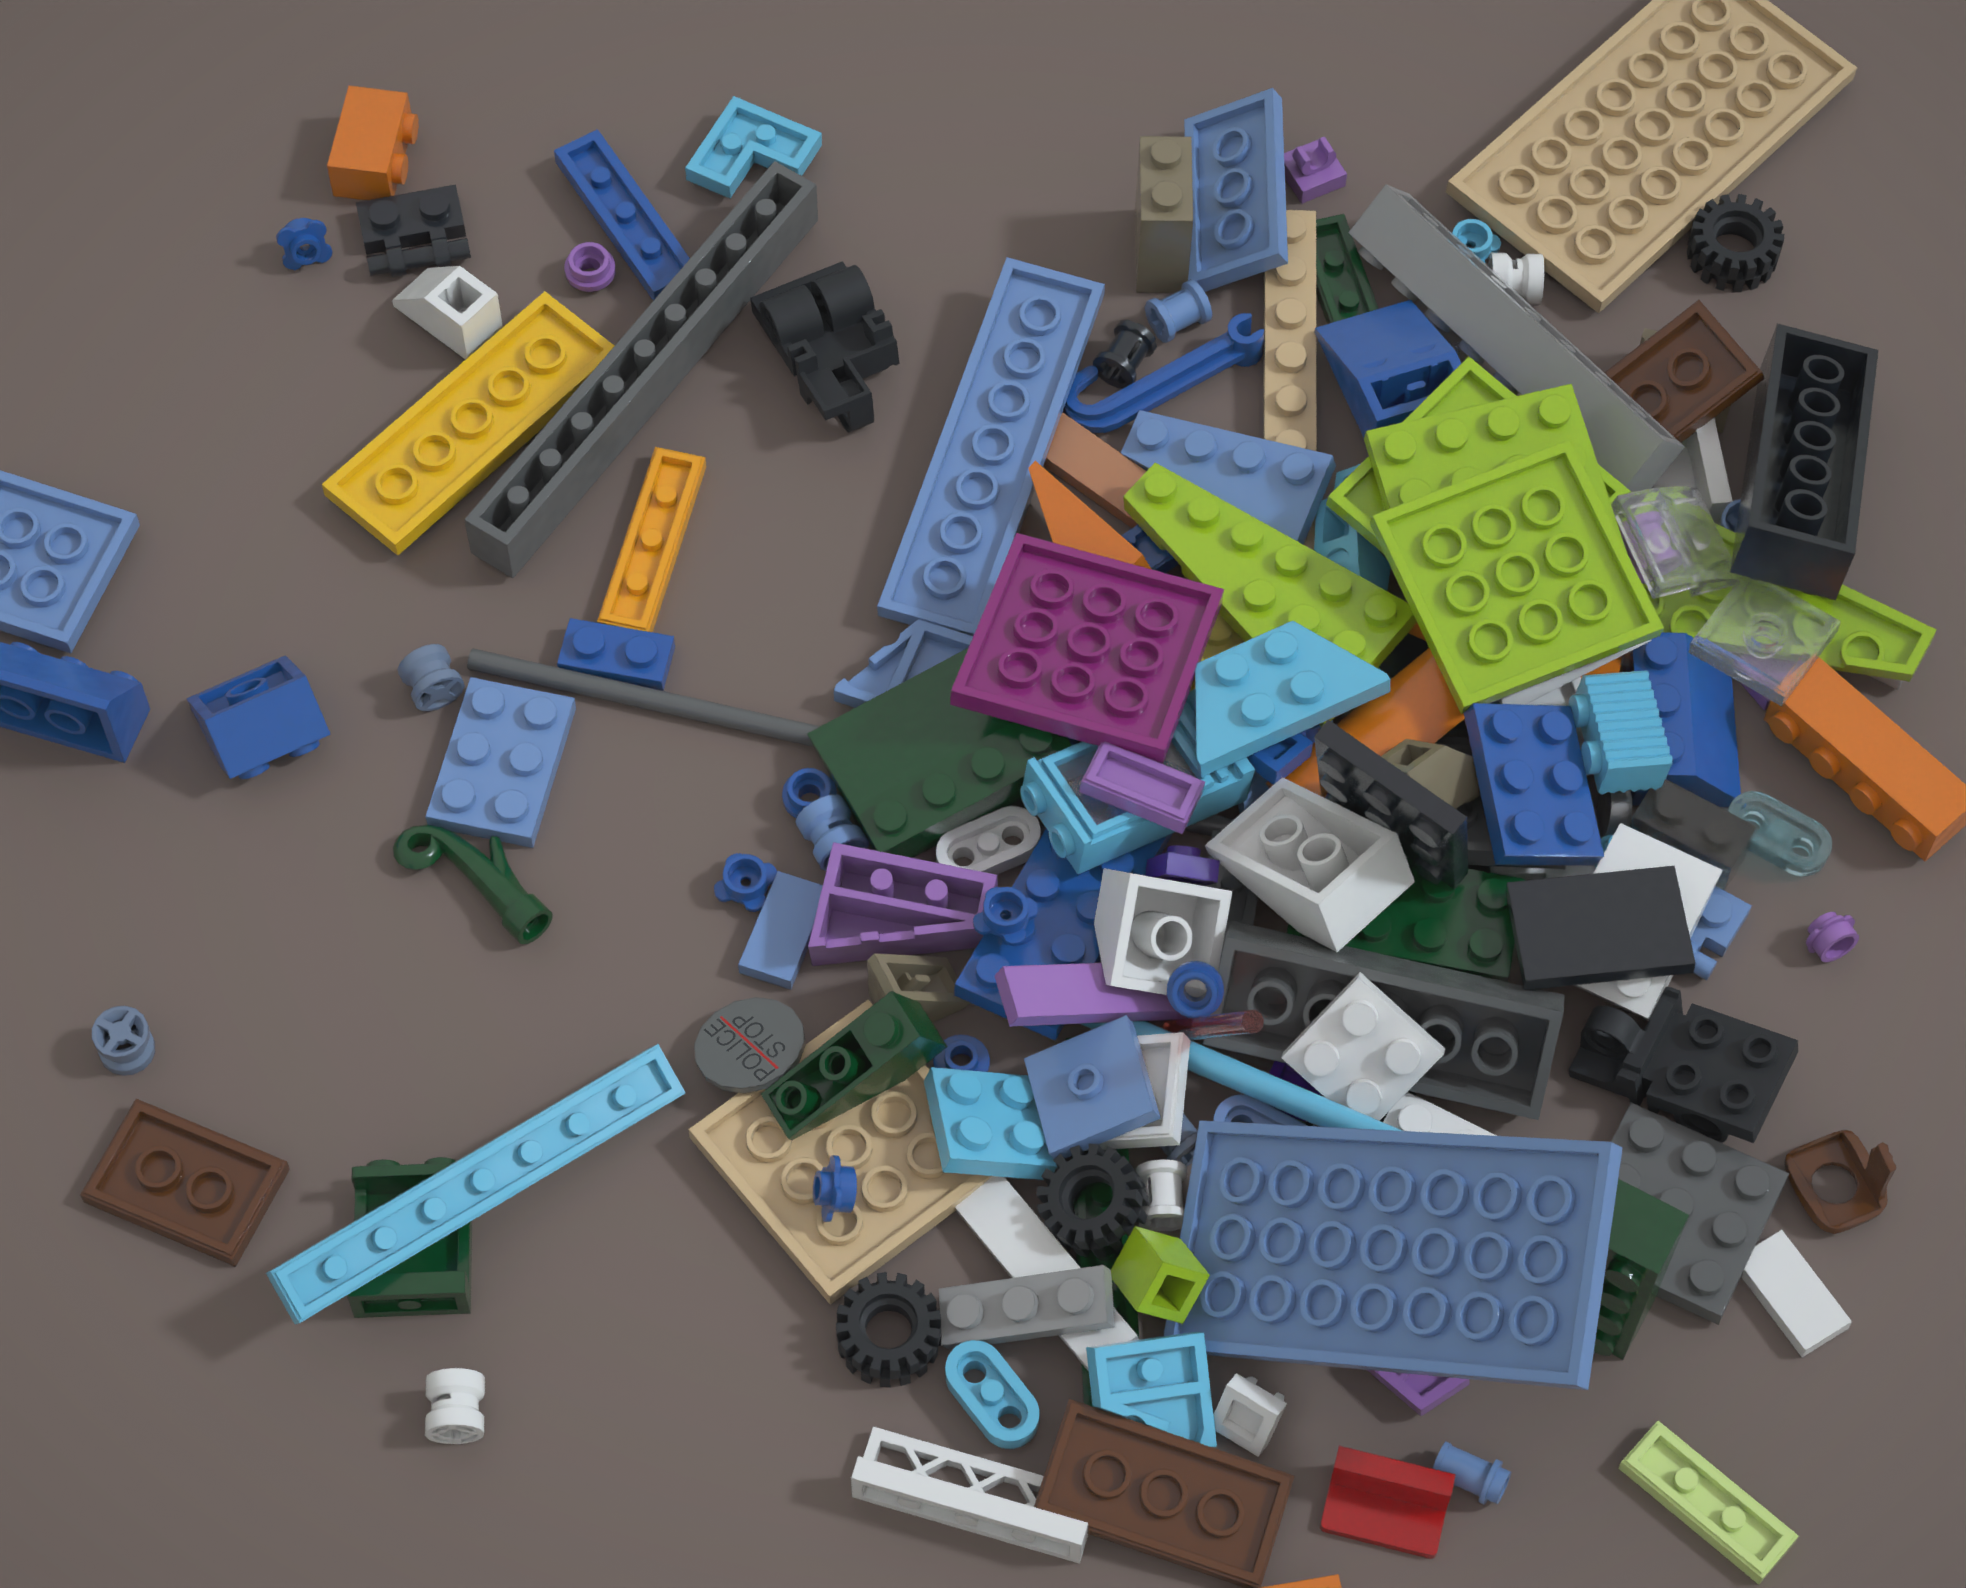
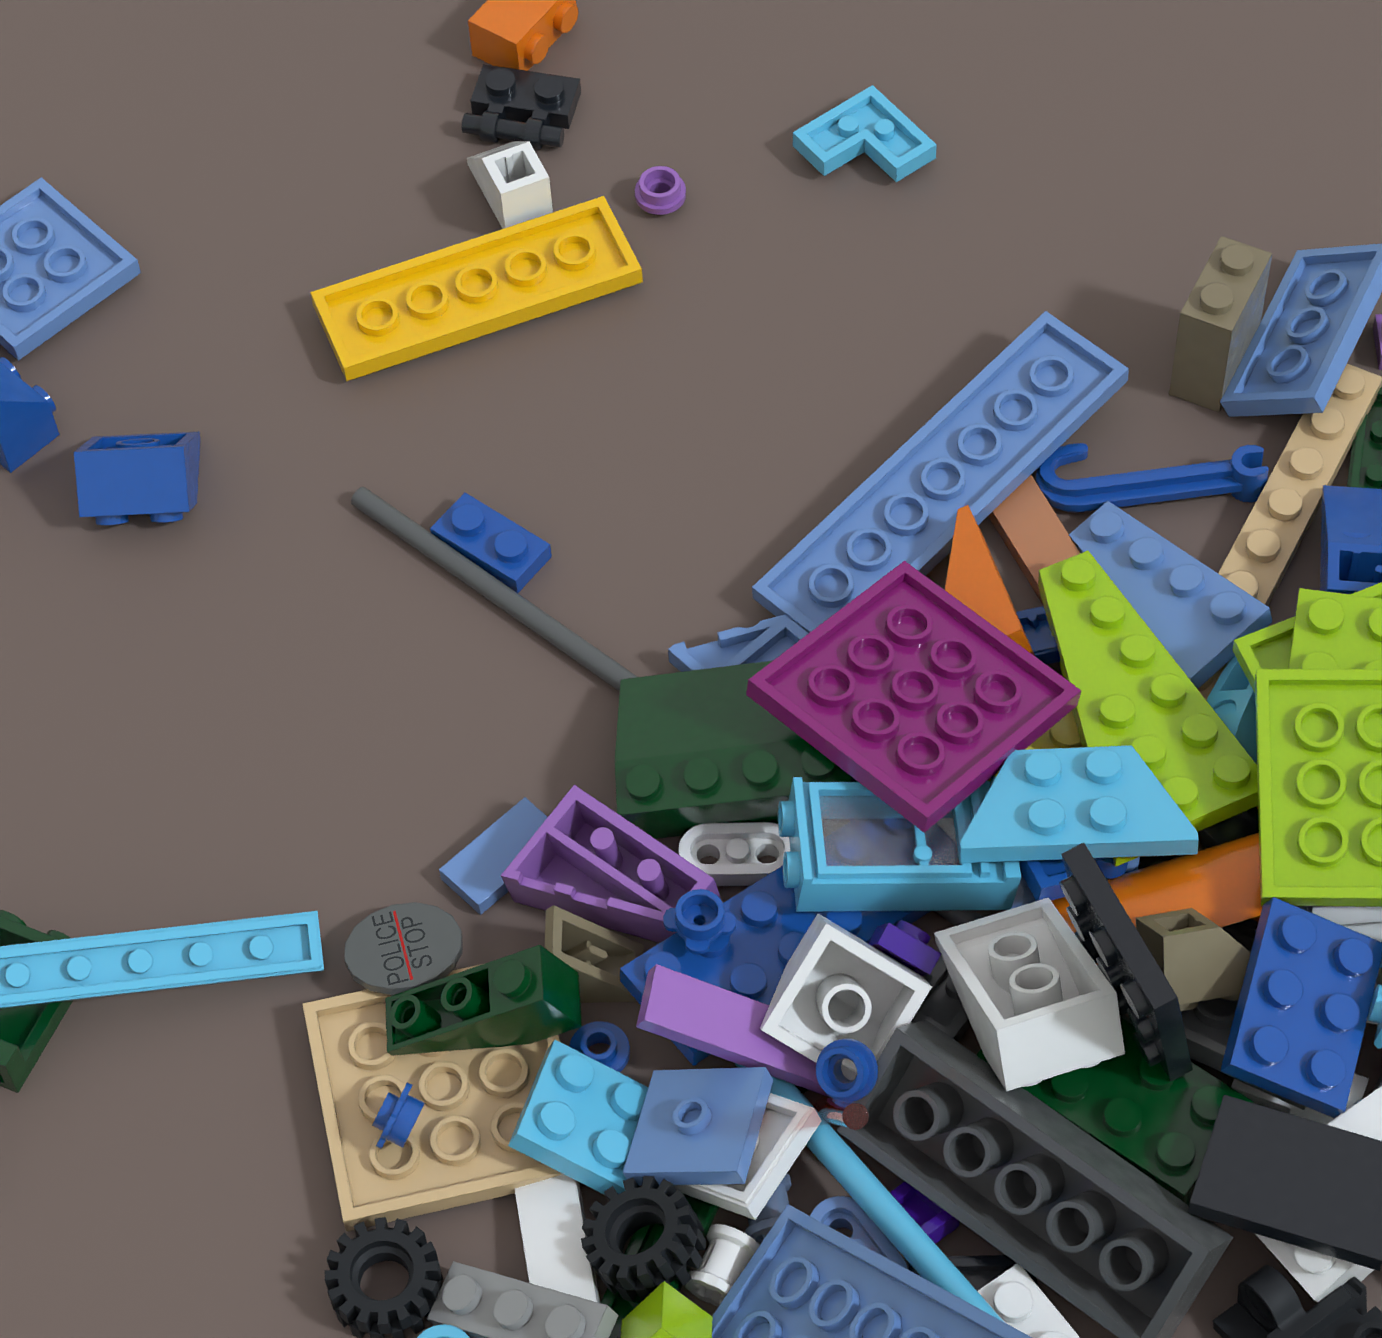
camera: 30 degrees right, 5 degrees down
(302, 232) = (421, 72): blue plate -> none
(431, 677) = (309, 497): sand blue wheel -> none
(501, 762) = (332, 599): medium blue plate -> none
(520, 912) = (269, 738): dark green plant -> none
(622, 211) = (718, 158): blue plate -> none
(641, 370) = (651, 293): dark grey brick -> none
(653, 540) = (582, 453): light orange tile -> none
(742, 867) = (486, 782): blue plate -> none
(802, 782) = (590, 726): blue plate -> none
(829, 822) = (593, 770): medium blue wheel -> none
(830, 339) = (841, 330): black plate -> none
(1125, 354) = (1116, 457): black bush -> none
(1142, 787) = (892, 847): medium lavender tile -> none
(1178, 310) = (1196, 423): medium blue bush -> none
(1363, 1050) = (988, 1204): white plate -> none

